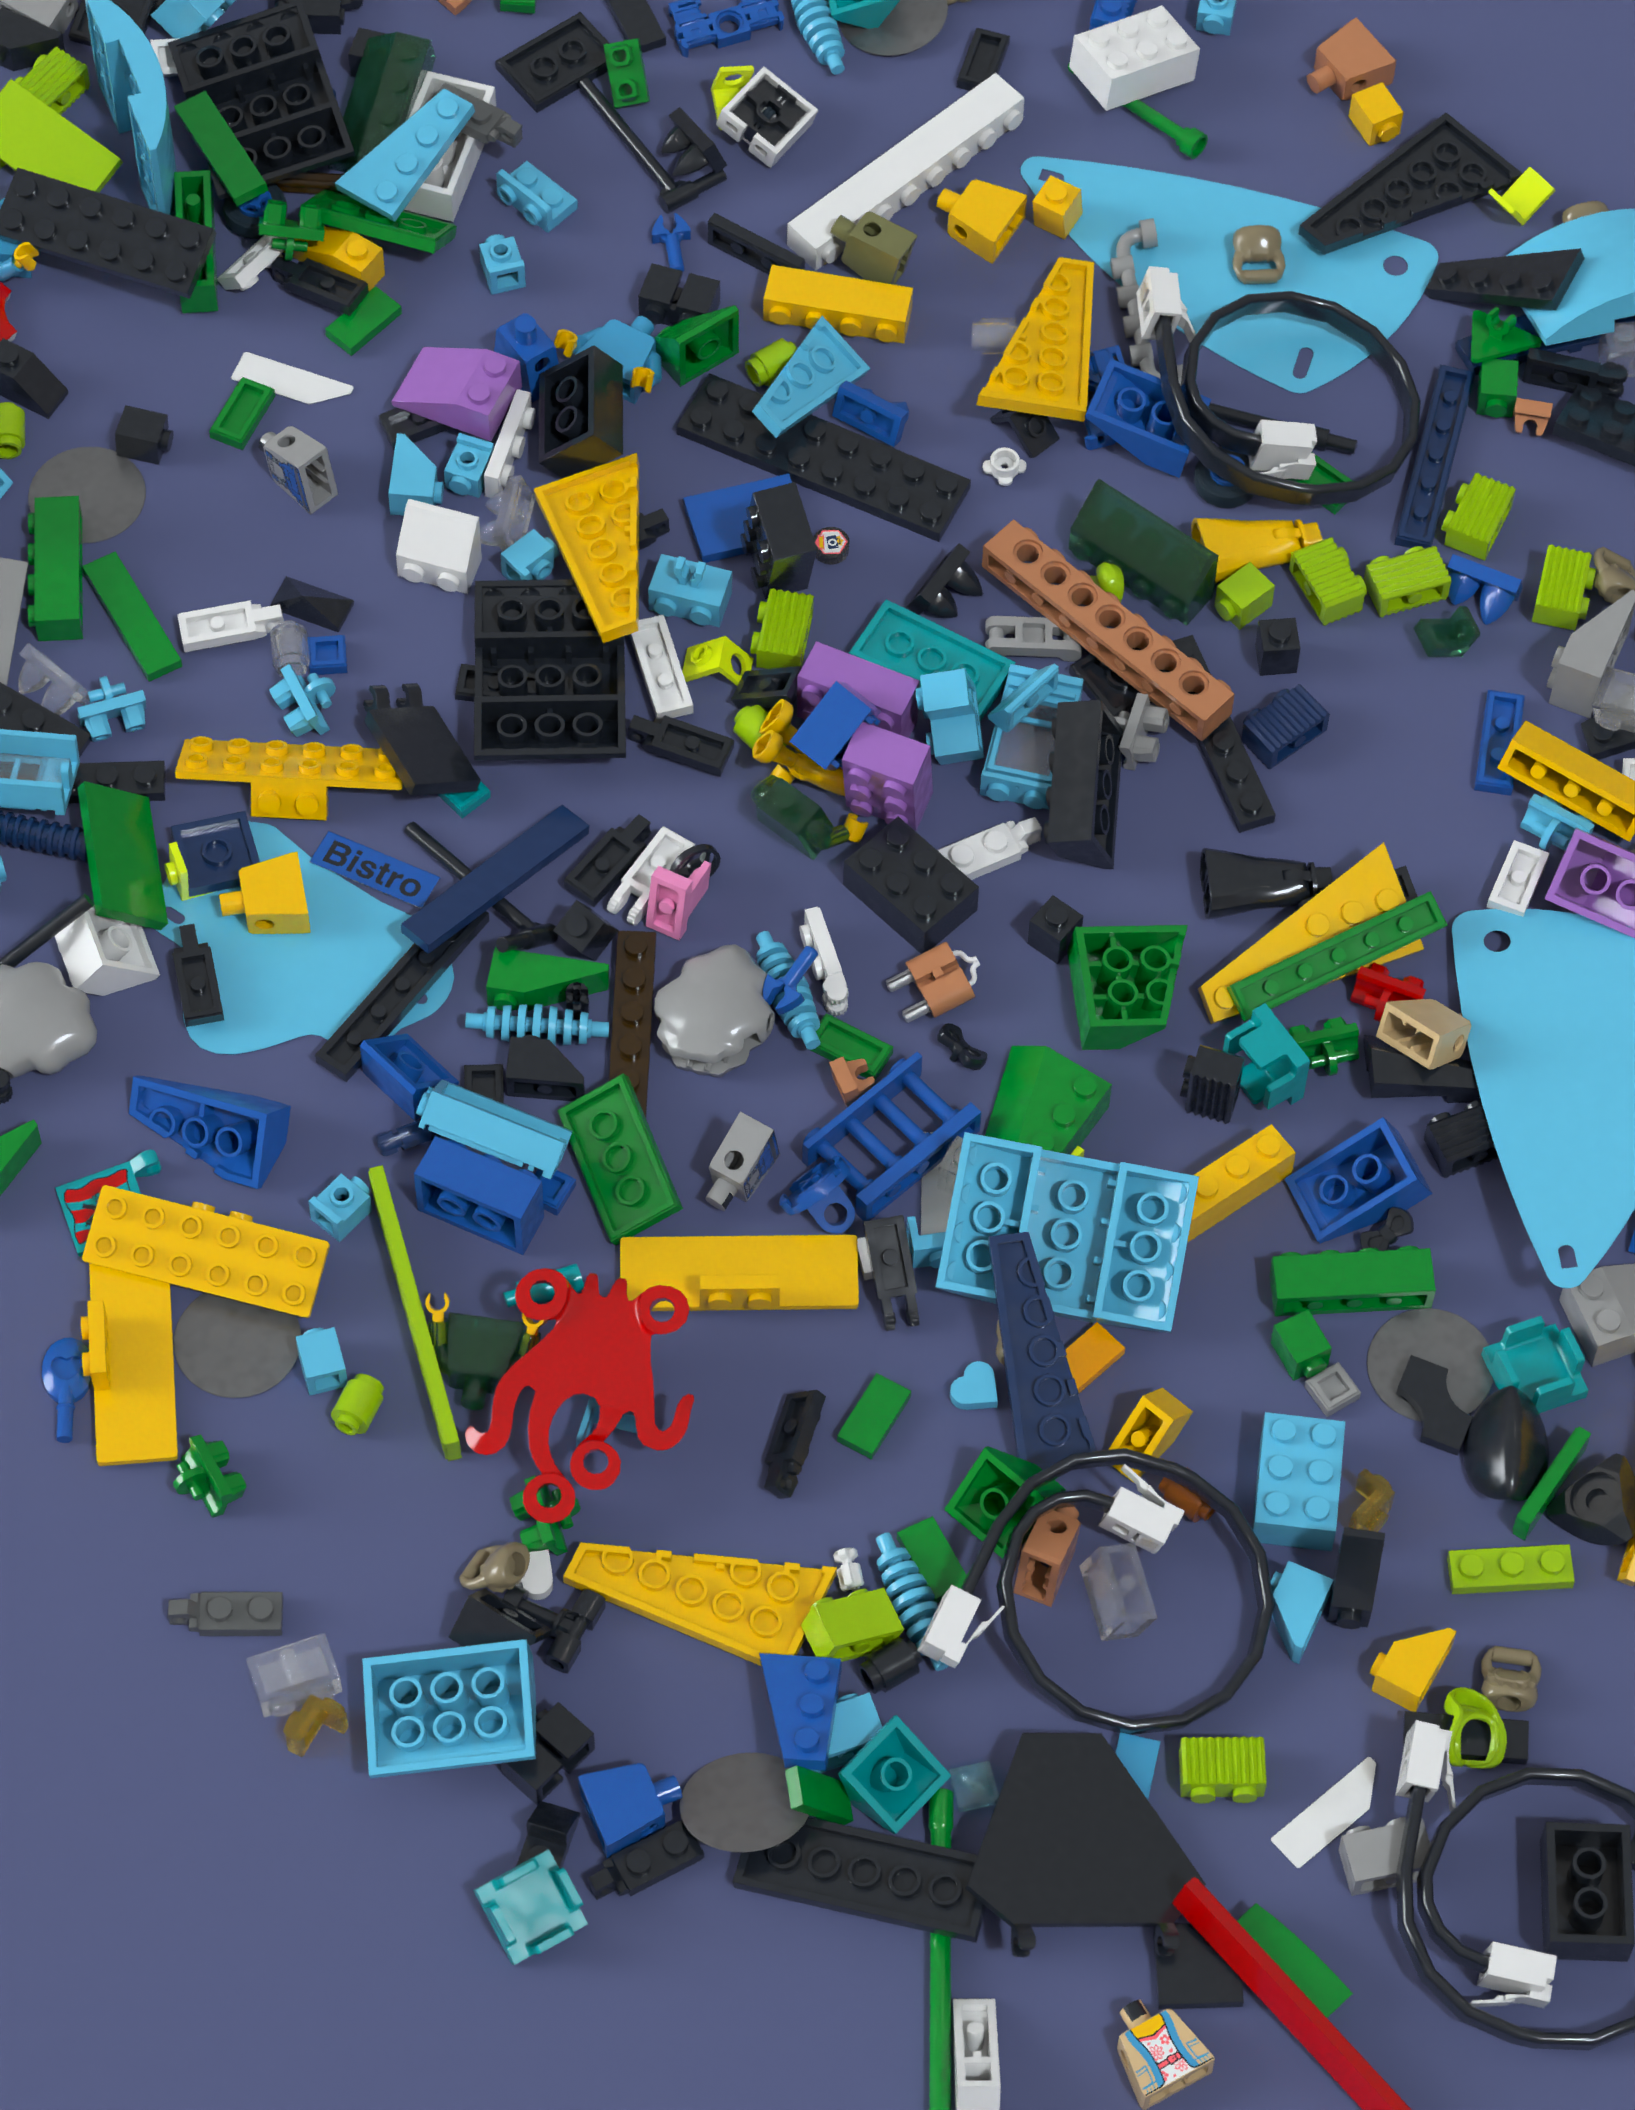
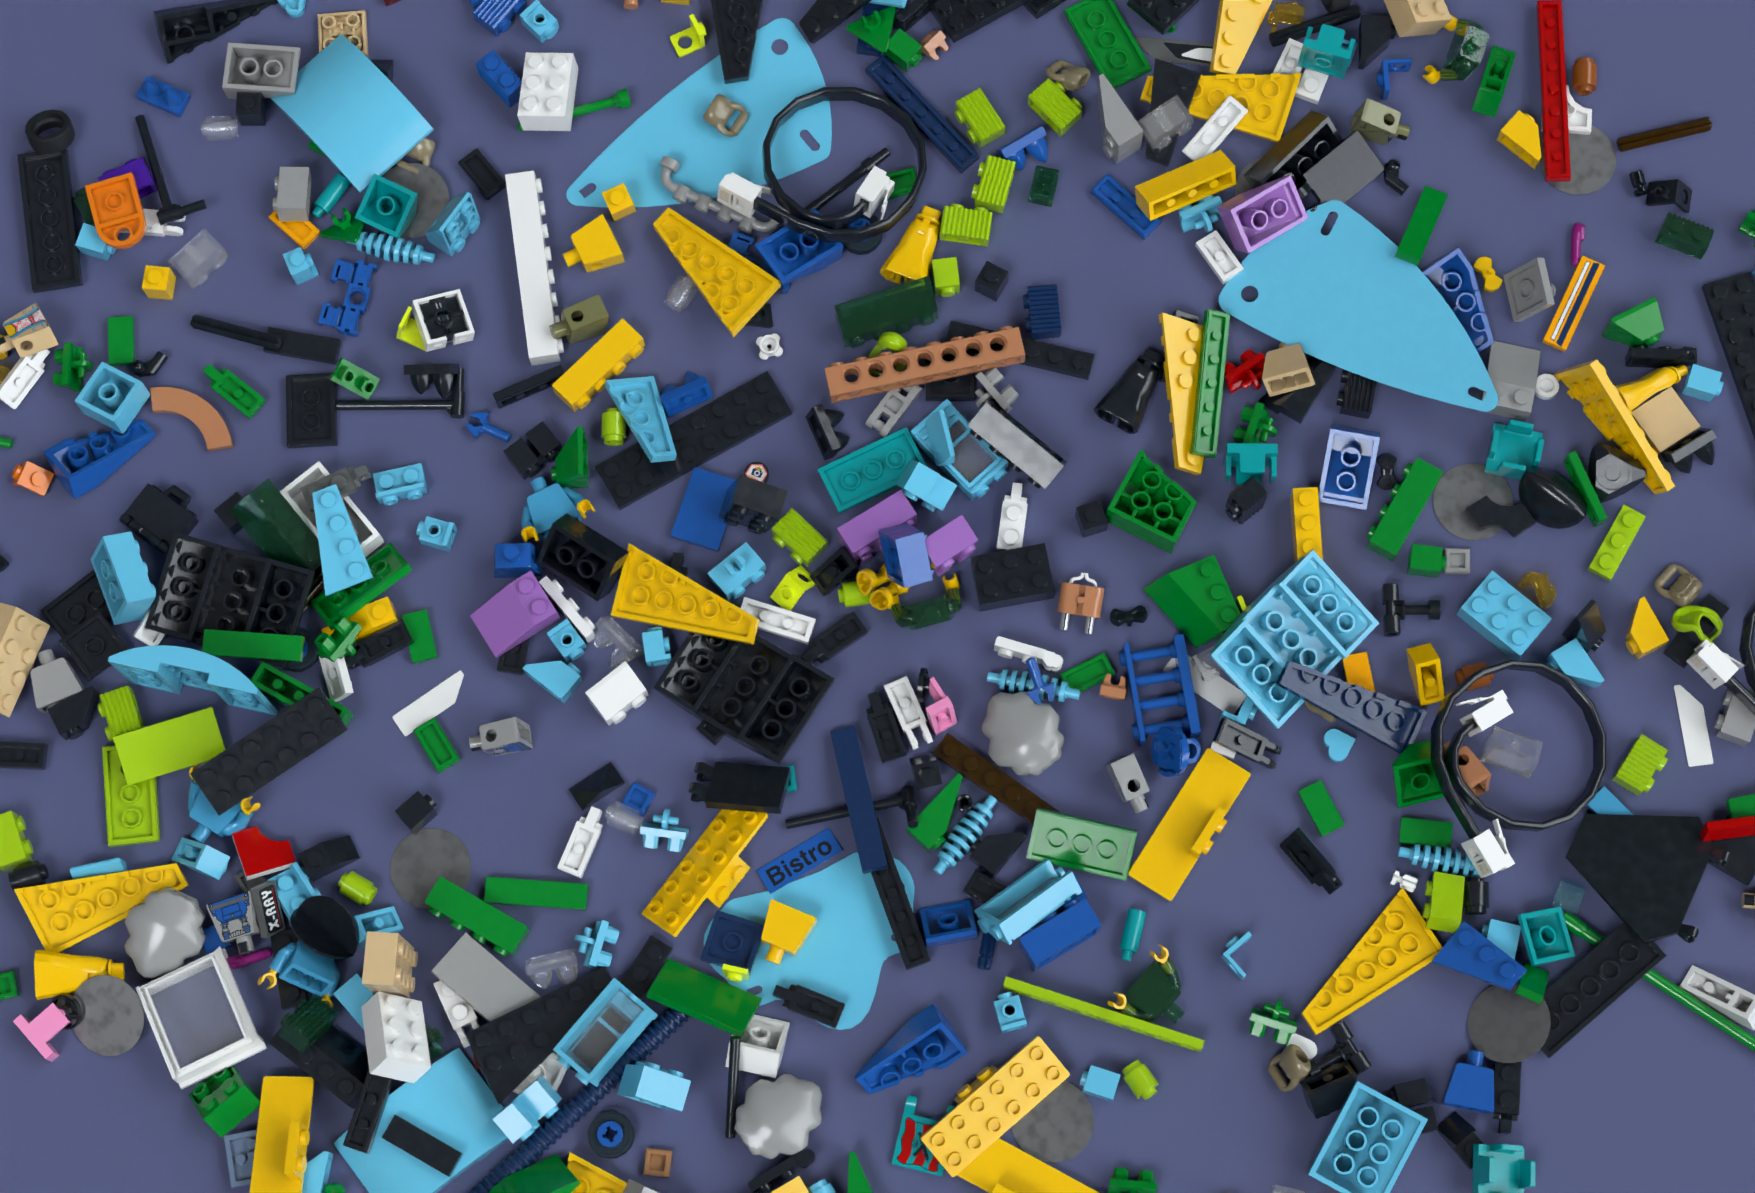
camera: 50 degrees left, 15 degrees up
(593, 1350) = (1213, 935): red hips -> none
(893, 57) = (454, 224): none -> medium azure slope
(1210, 1353) = (1397, 609): none -> black bar
(1338, 165) = (695, 33): none -> neon yellow bracket

